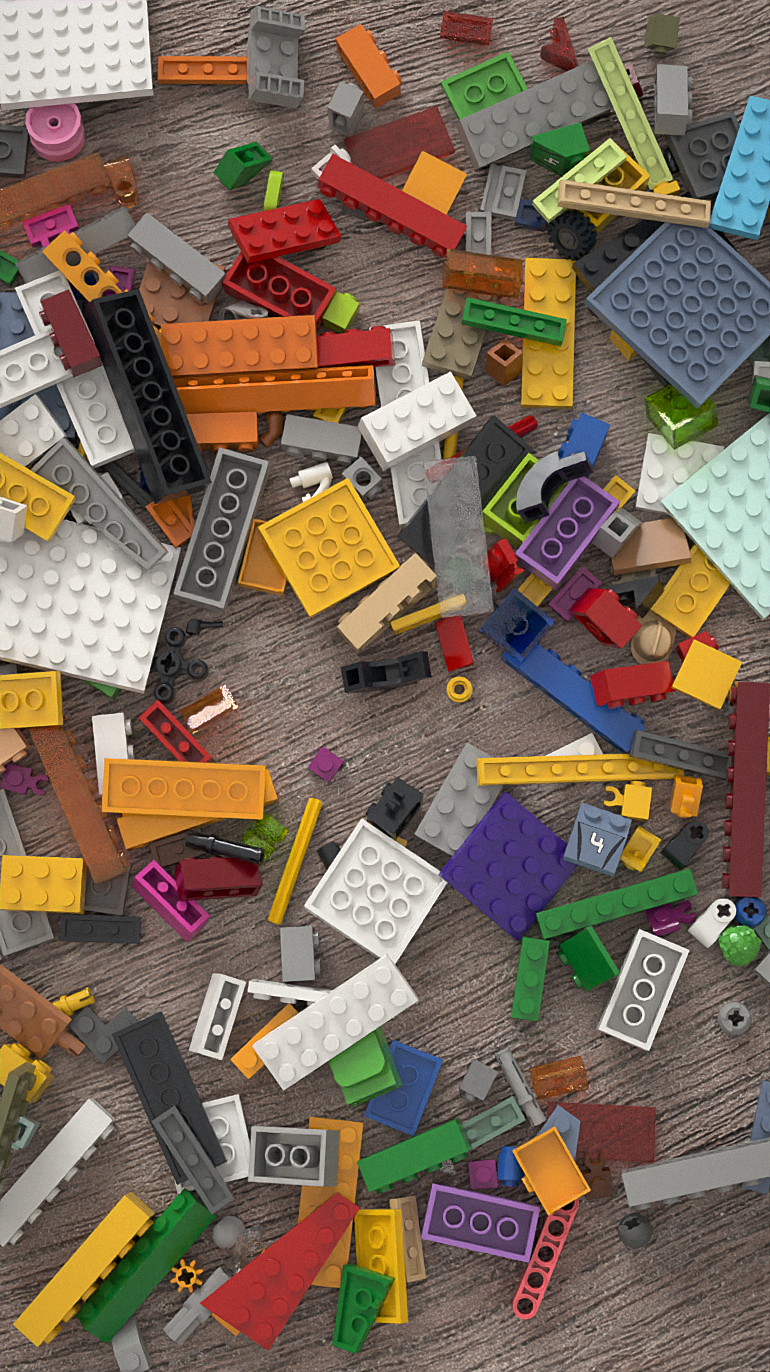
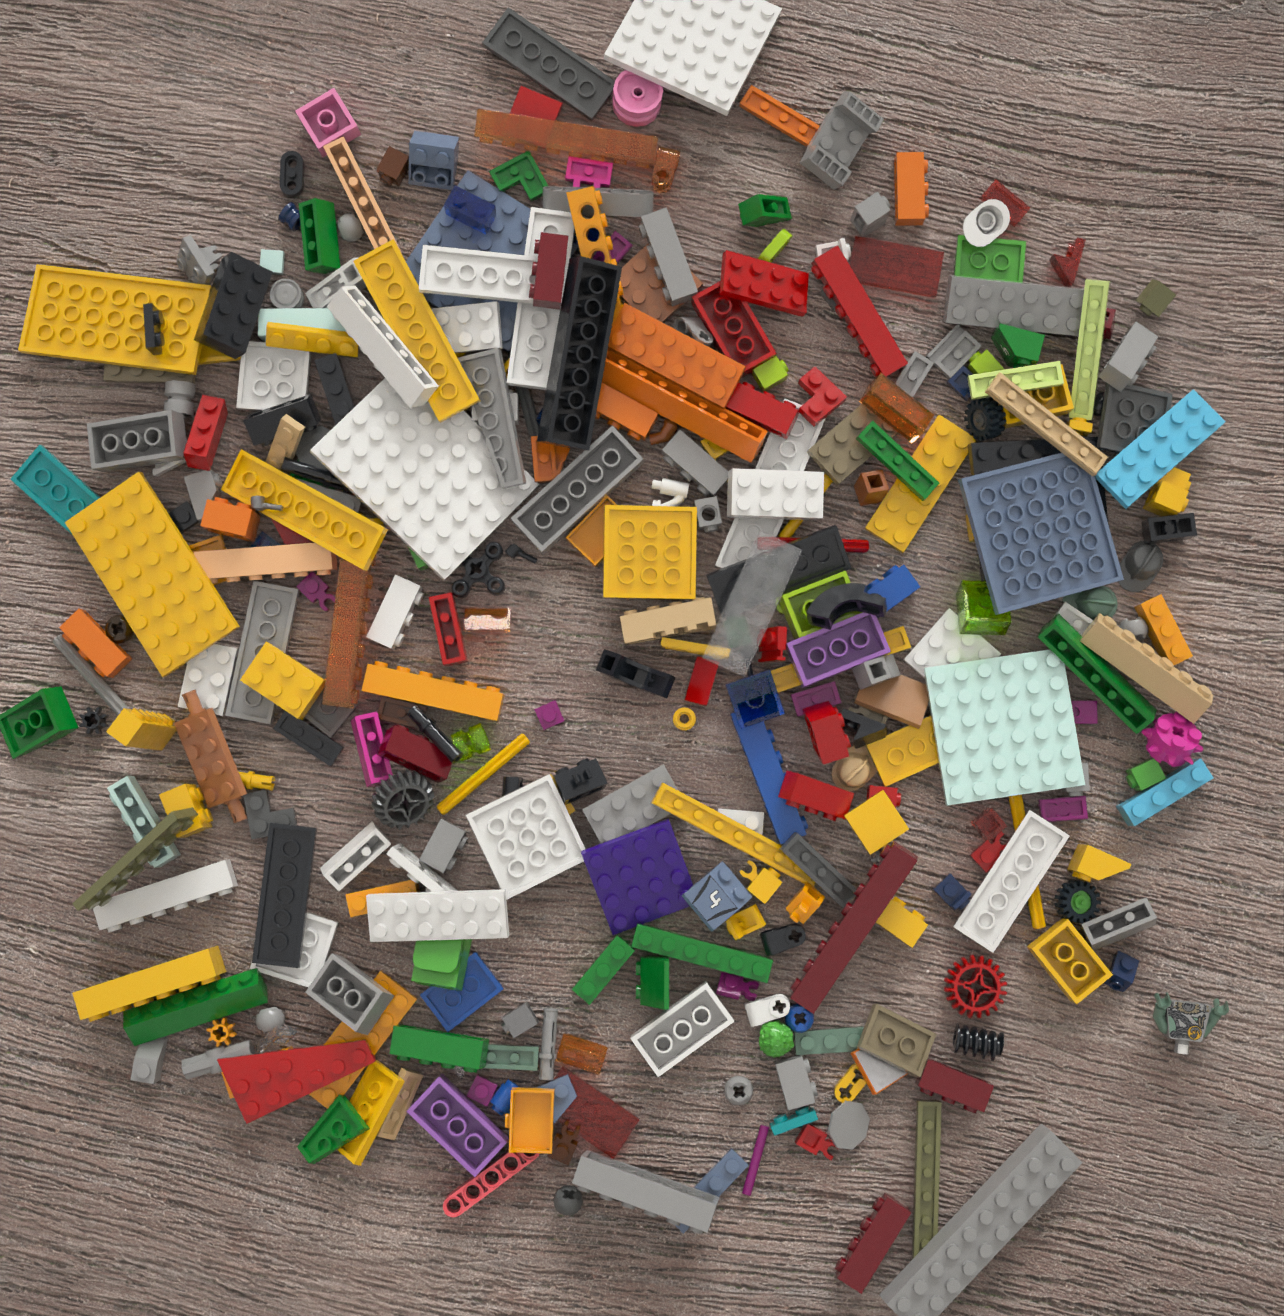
camera: 30 degrees right, 5 degrees up
(183, 788) = (429, 672): light orange plate -> none
(193, 1159) = (273, 952): dark grey plate -> none
(222, 932) = (402, 799): none -> dark grey gear
(405, 302) = (824, 395): none -> plate
(434, 182) = (903, 313): light orange tile -> none
(460, 54) = (986, 222): none -> white piece
(537, 184) = (983, 363): none -> lime brick

